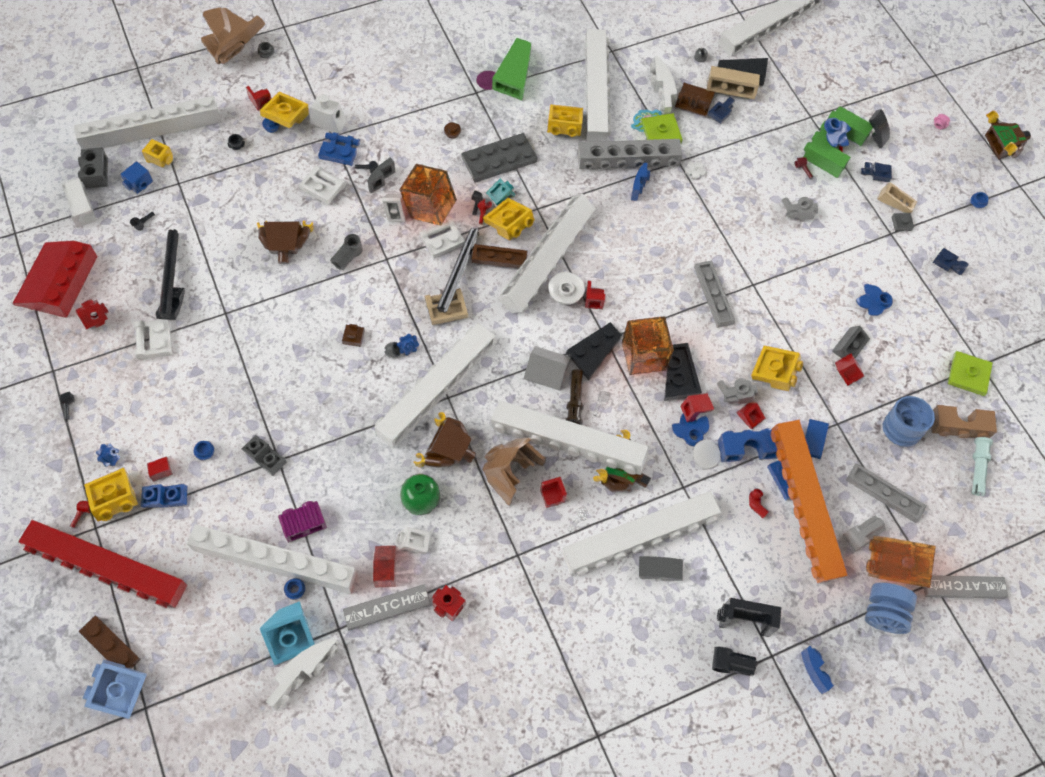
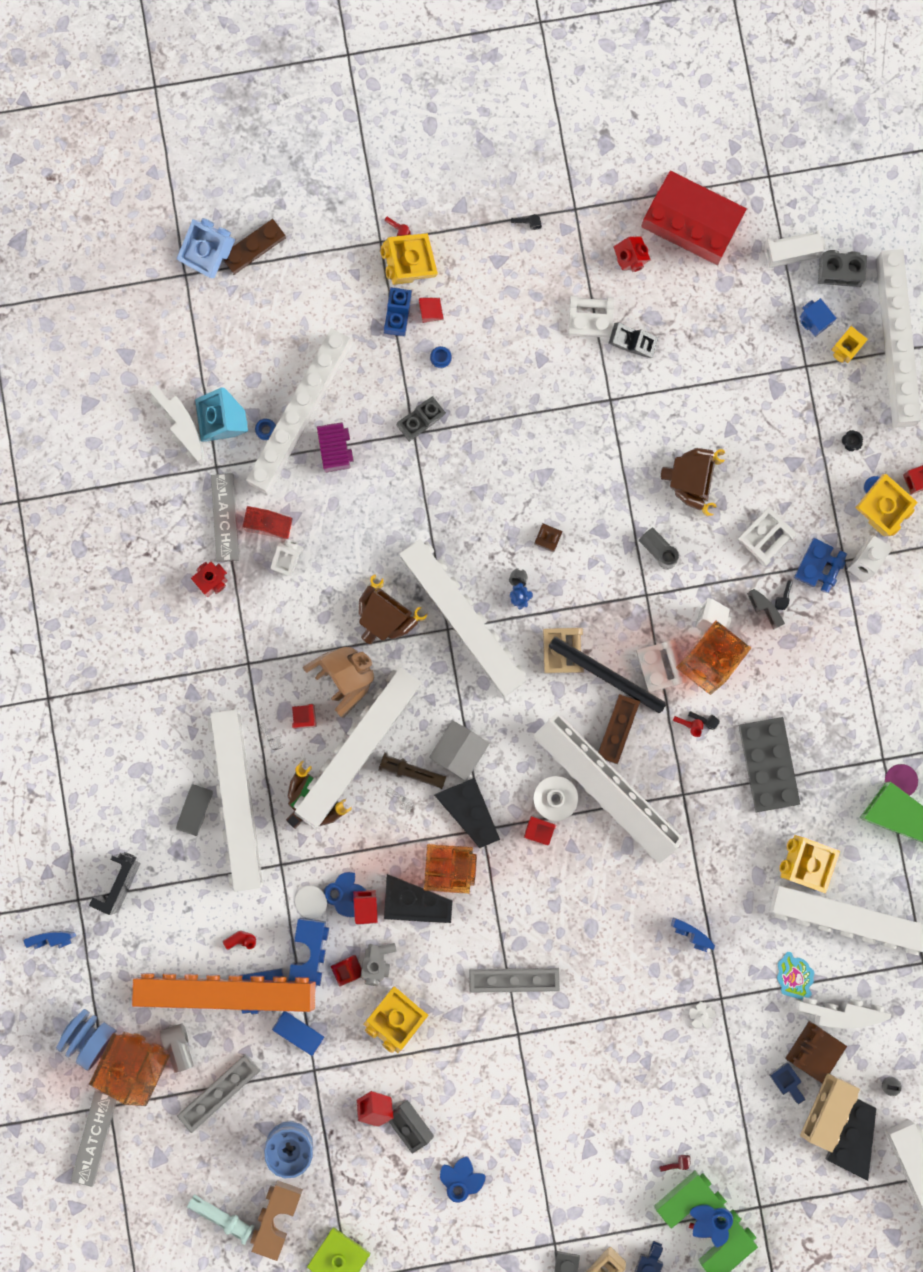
camera: 110 degrees right, 20 degrees up
(102, 563) = (335, 245): red brick -> none
(108, 455) = (456, 259): blue plant -> none
(139, 223) = (754, 317): black hand -> none
(168, 273) = (670, 341): black axle -> none
(420, 494) = (337, 574): green cylinder -> none
(452, 130) = (823, 713): reddish brown plate -> none
(500, 191) = (712, 753): teal bracket -> none
(510, 218) = (668, 753): yellow plate -> none
(629, 154) = (737, 990): light grey brick -> none
(661, 127) = (772, 990): lime plate -> none
(728, 661) = (82, 848): black piece -> none
(803, 210) = (607, 1135): light grey piece -> none

